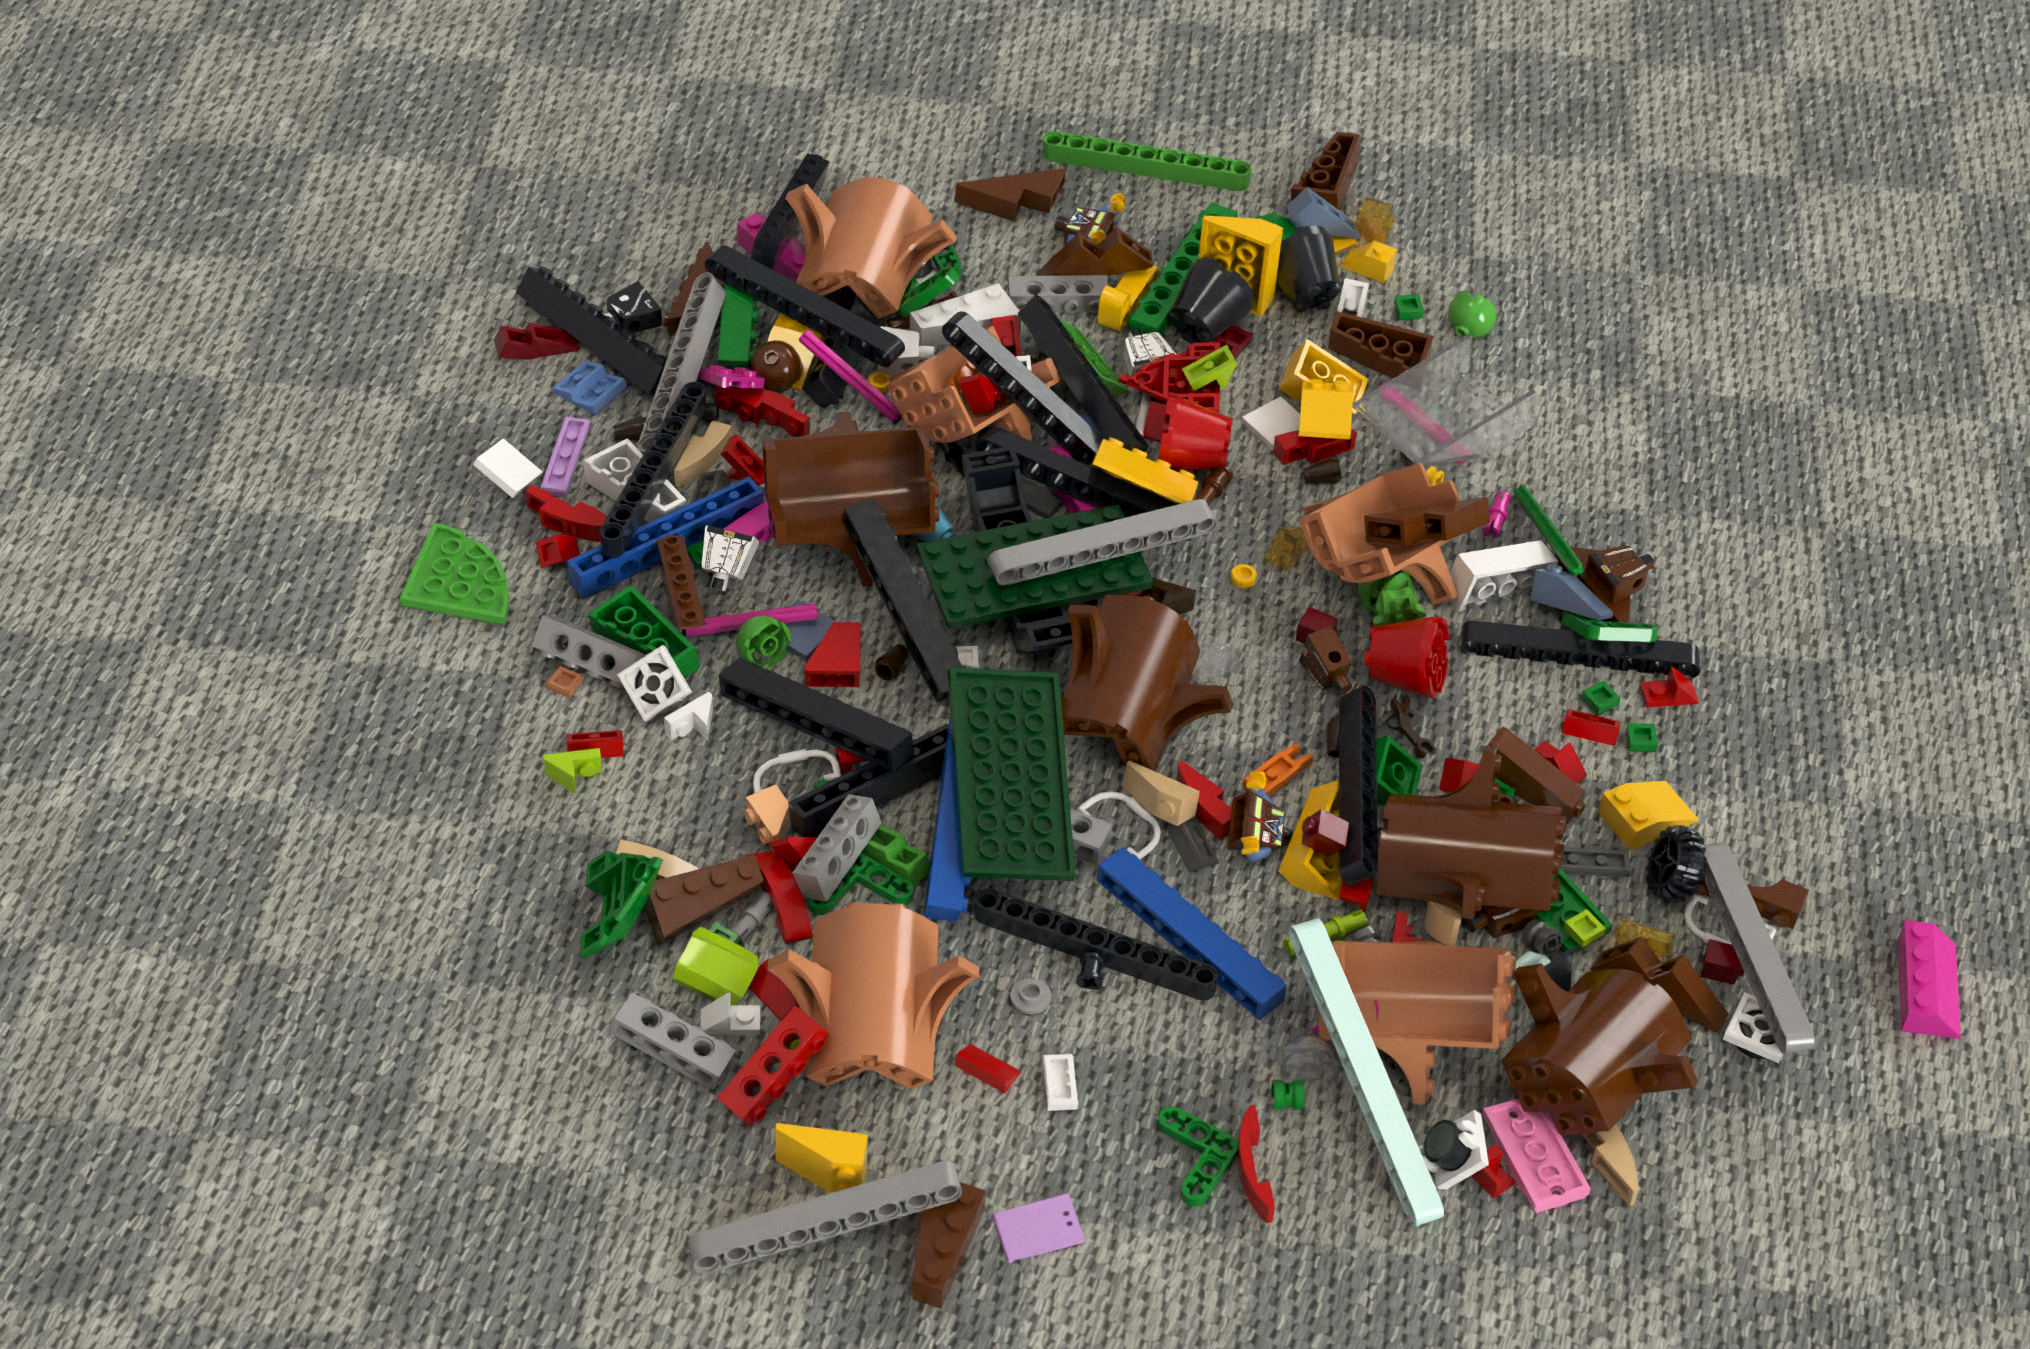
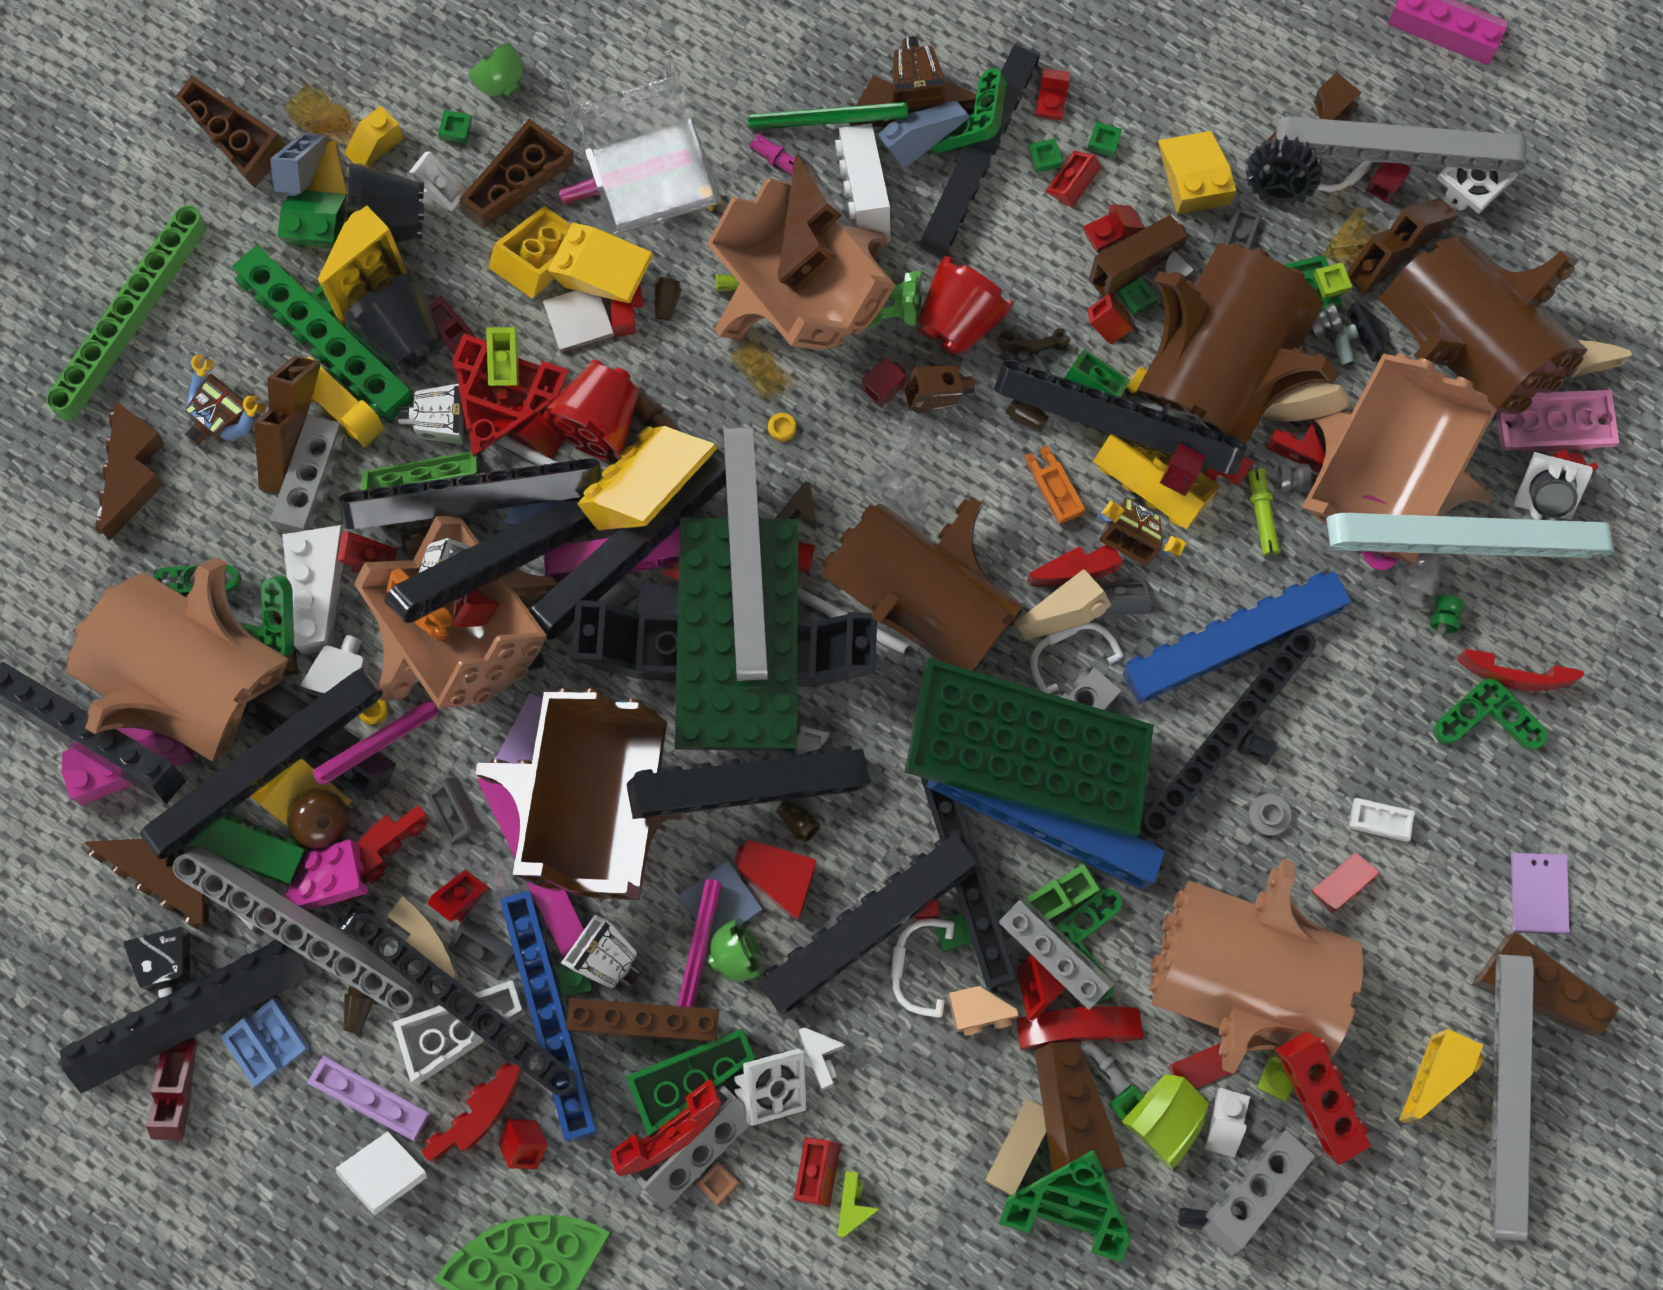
camera: 70 degrees left, 25 degrees up
(574, 614) = (640, 1154): none -> red slope

